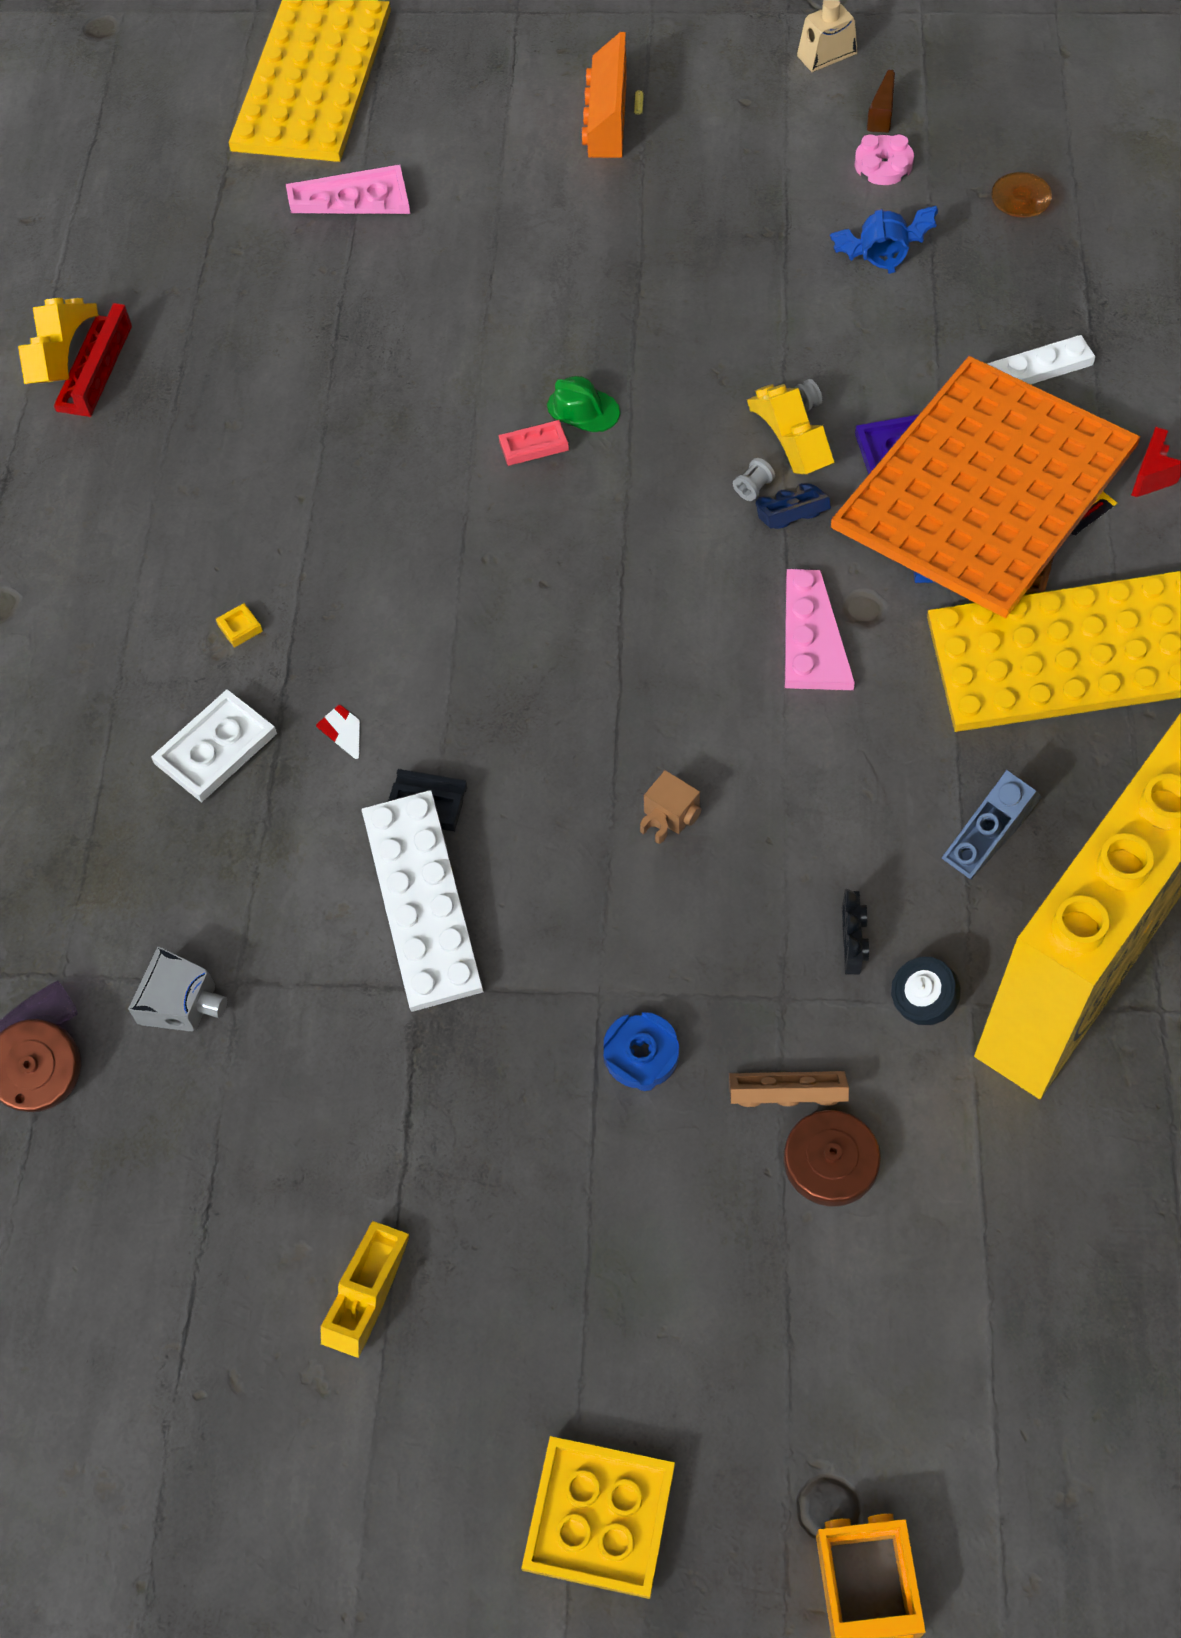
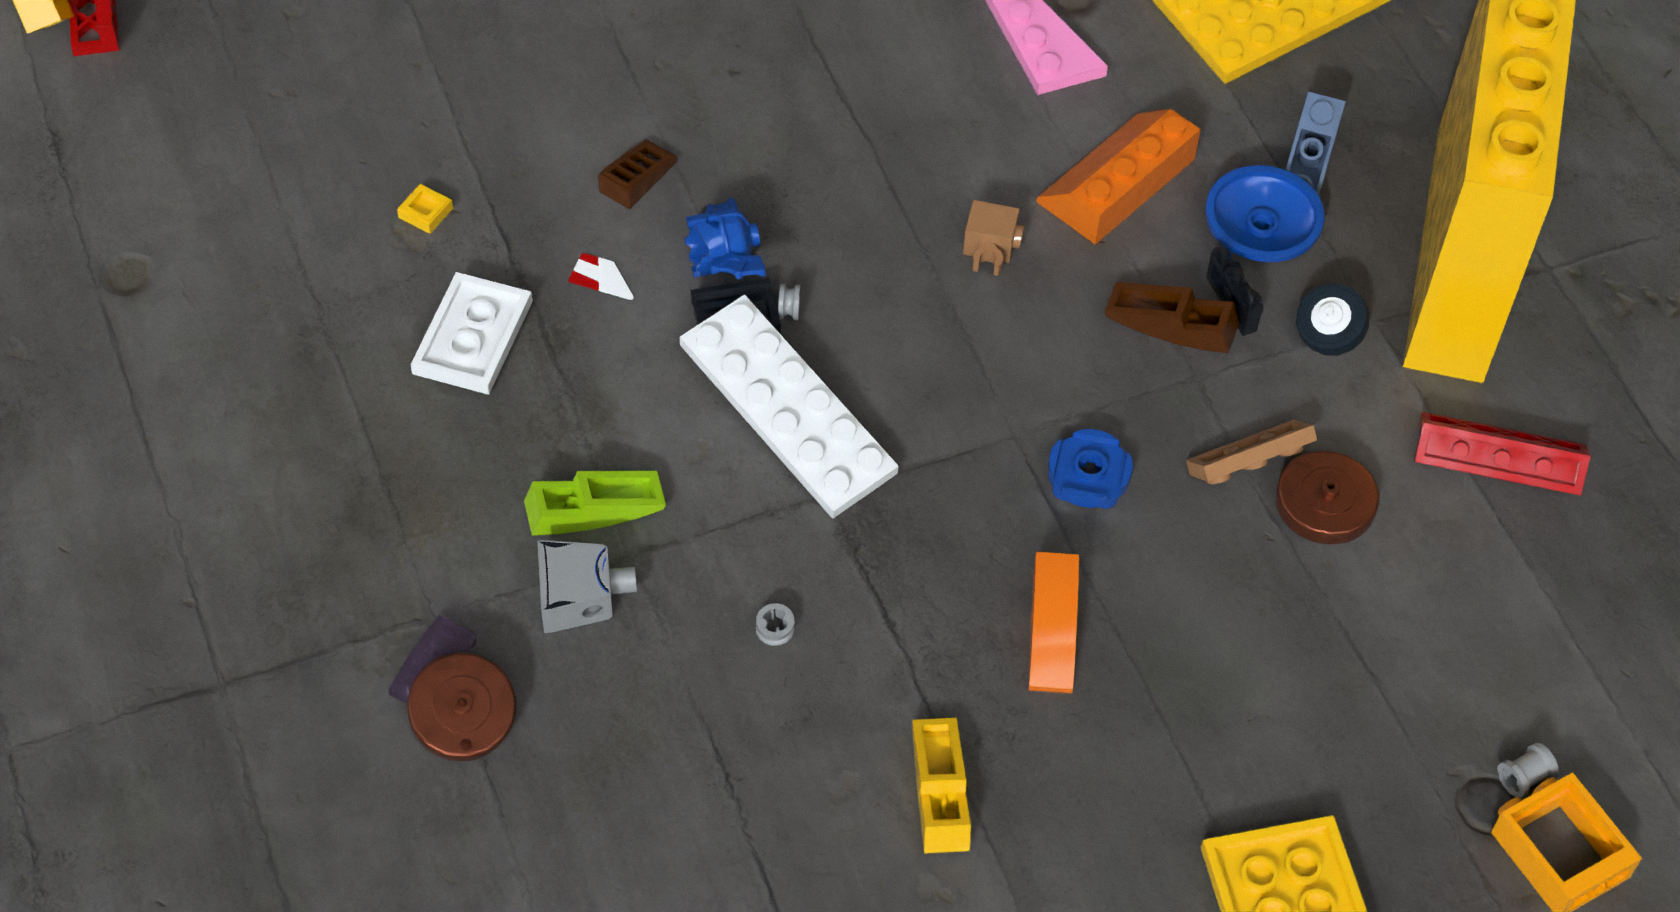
camera: 30 degrees left, 5 degrees down
(228, 925) = (592, 501): none -> lime slope
(301, 1089) = (773, 611): none -> light grey bush
(411, 661) = (629, 193): none -> reddish brown slope
(444, 735) = (723, 242): none -> blue helmet
(472, 807) = (789, 301): none -> light grey bush
(533, 1180) = (1053, 622): none -> orange slope
(789, 935) = (1174, 315): none -> reddish brown slope
(814, 787) = (1122, 173): none -> orange slope
(875, 1494) = (1528, 770): none -> light grey bush
(918, 853) = (1264, 213): none -> blue dish
(1016, 1176) = (1502, 453): none -> fence

